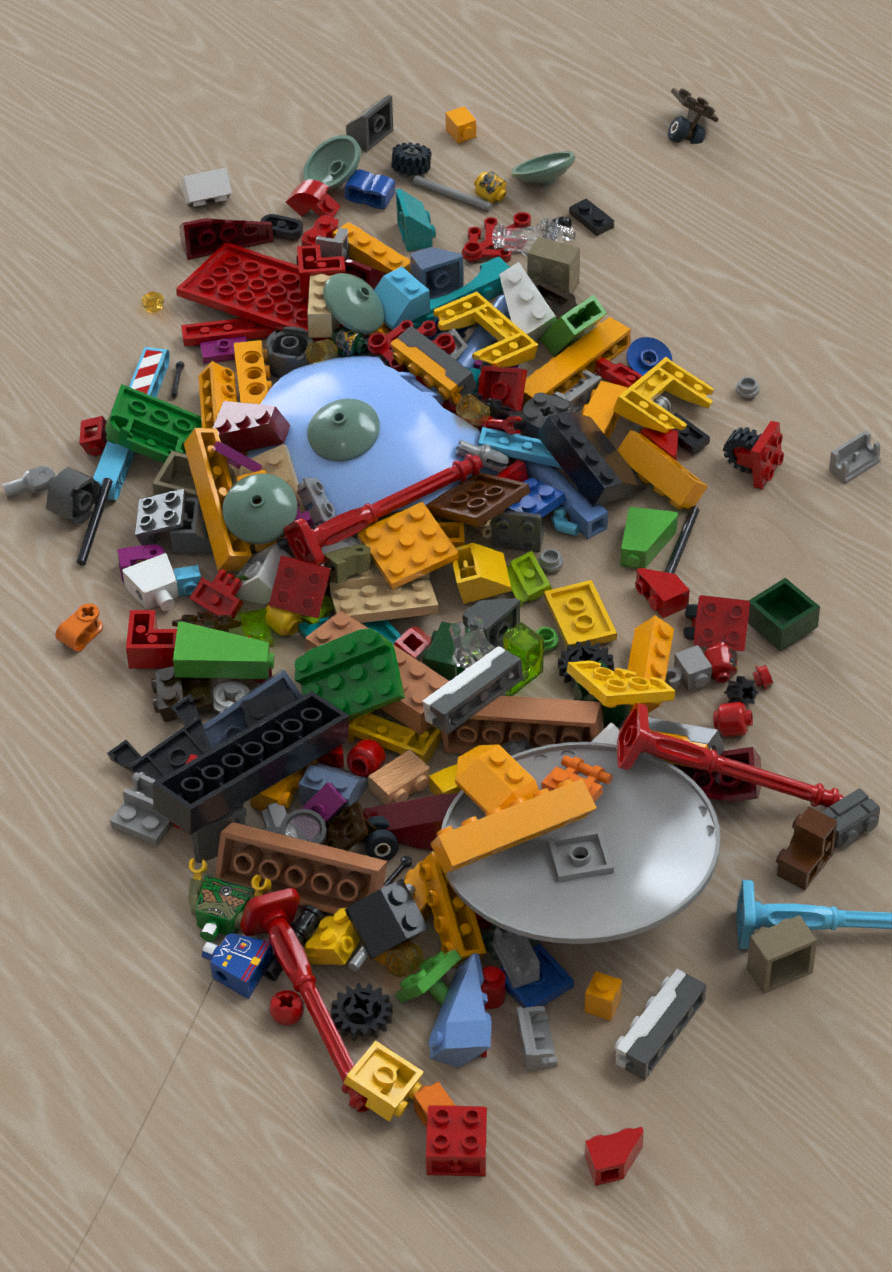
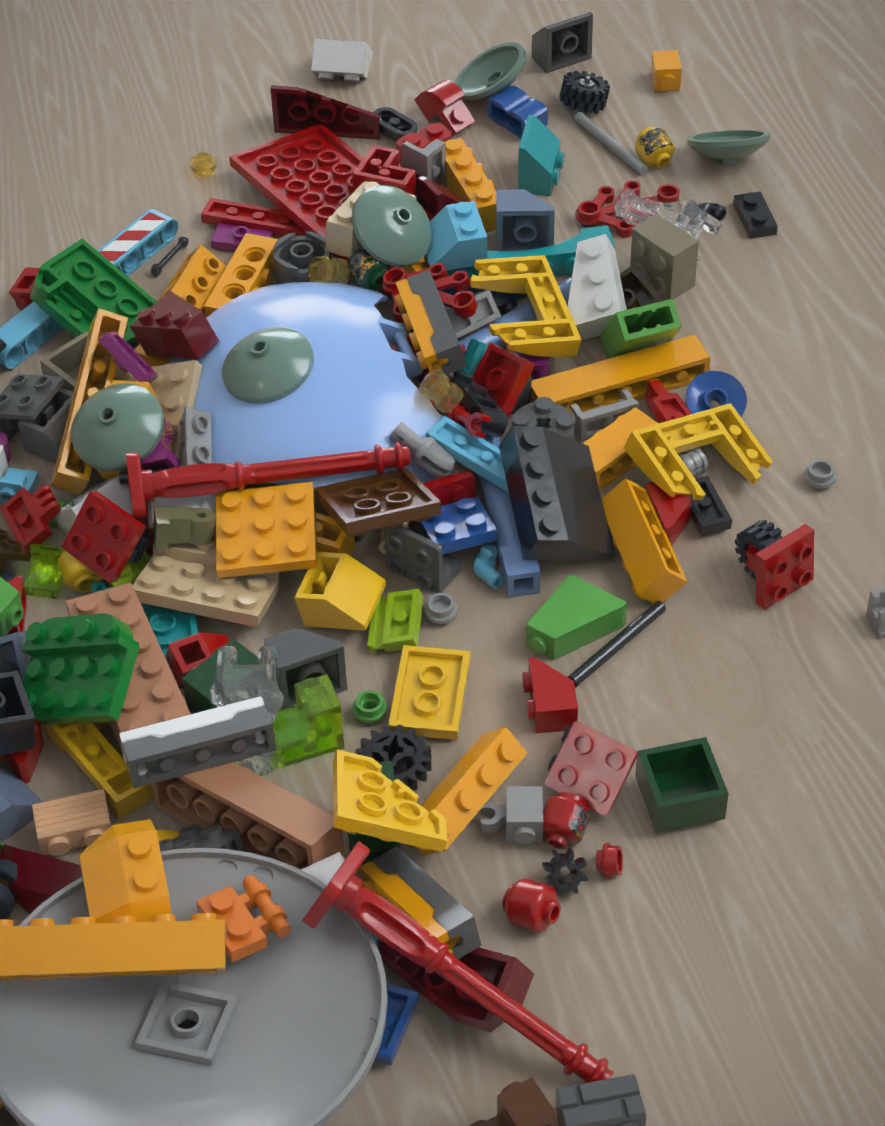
camera: 25 degrees right, 0 degrees up
(366, 758) = (48, 779): red head -> none

